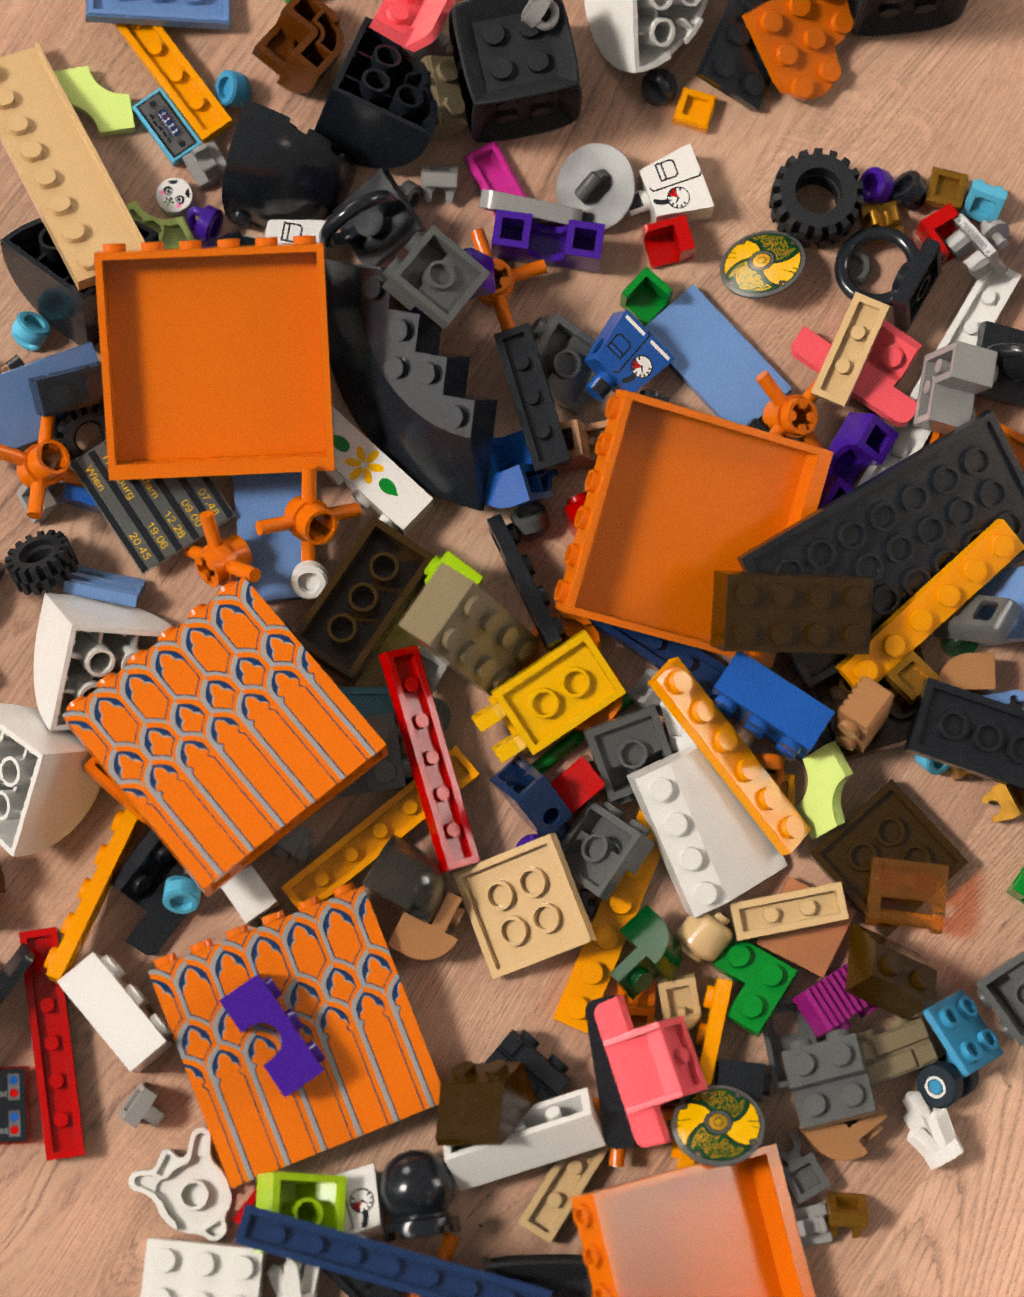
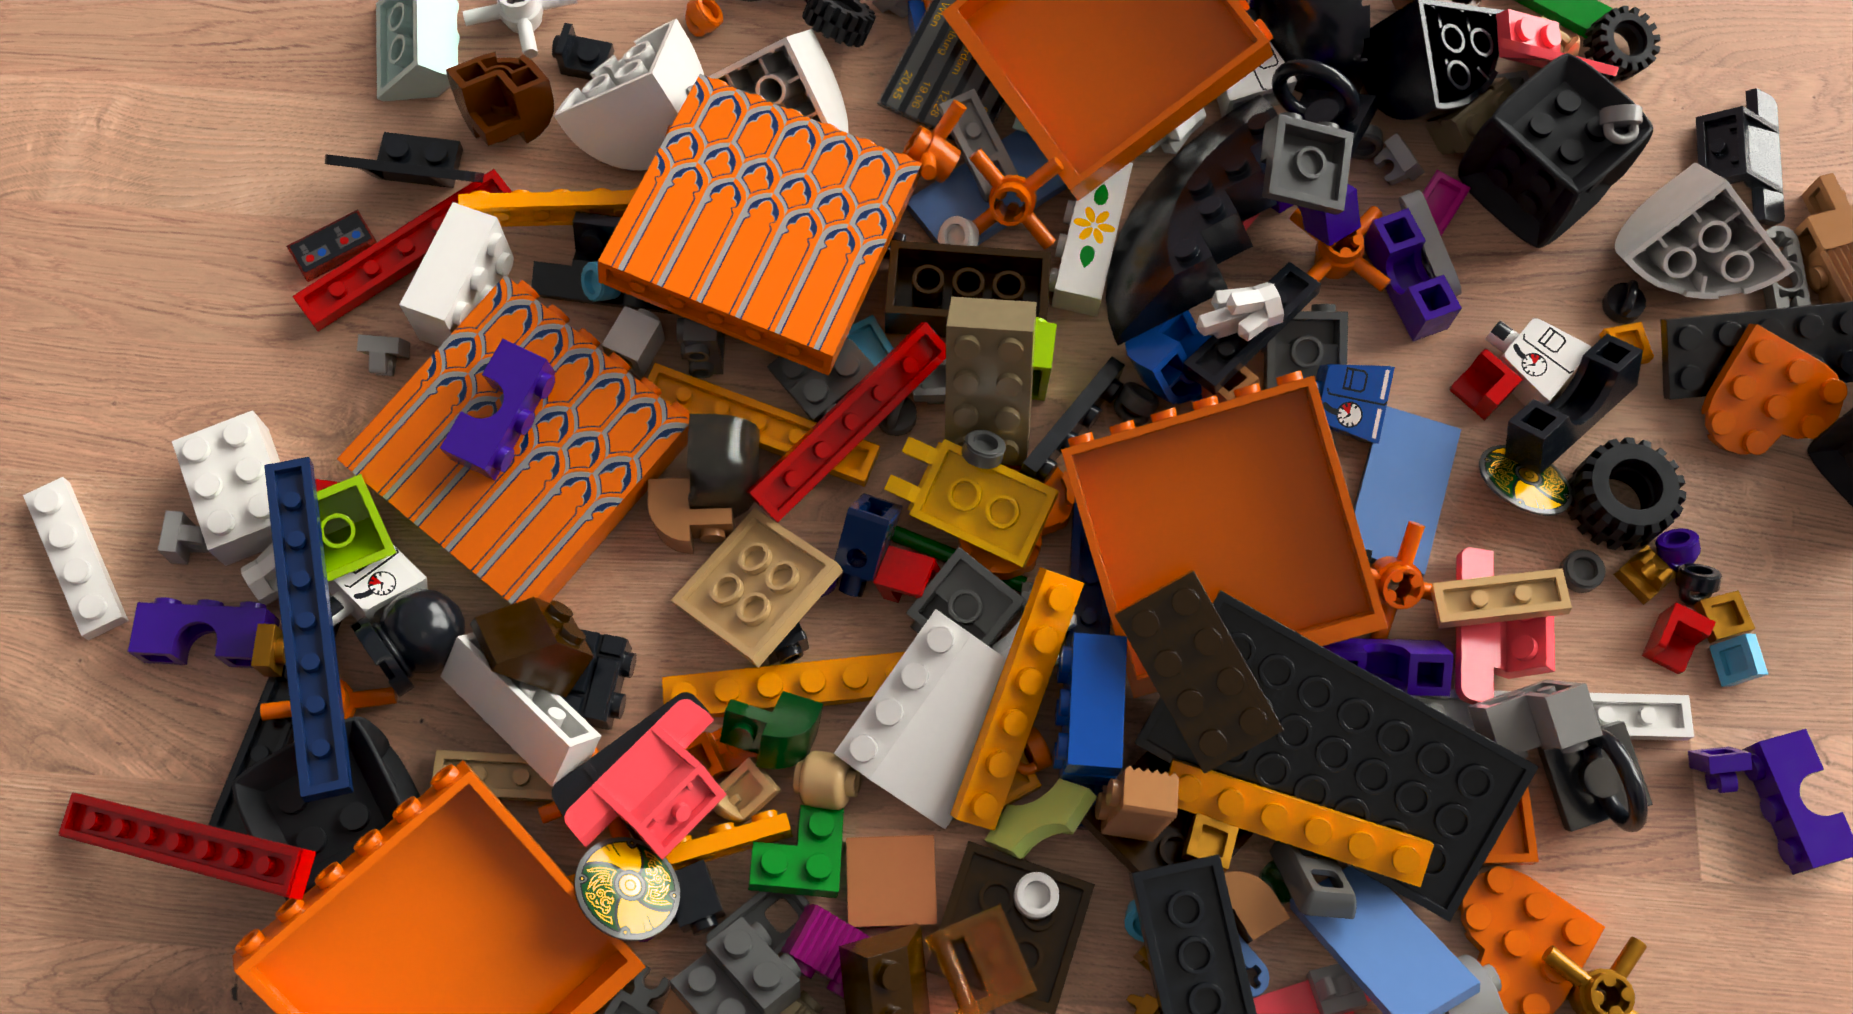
camera: 60 degrees right, 10 degrees down
(105, 586) = (850, 80): medium blue tile -> none
(189, 1189) = (324, 428): white tile -> none
(232, 512) = (975, 132): none -> light grey plate
(520, 668) = (983, 449): none -> dark grey tile
(523, 395) = (1242, 312): none -> white rock
(598, 182) = (1496, 292): shield -> none
(604, 847) = (856, 629): dark grey plate -> none
(646, 296) = (1419, 388): green panel -> none
(736, 219) = (1602, 380): none -> black arch
(788, 911) = (895, 850): tan plate -> none
(878, 826) = (1036, 895): none -> white tile
(912, 281) = (1610, 629): black tile -> none
(984, 242) = (1689, 673): light grey hips -> none

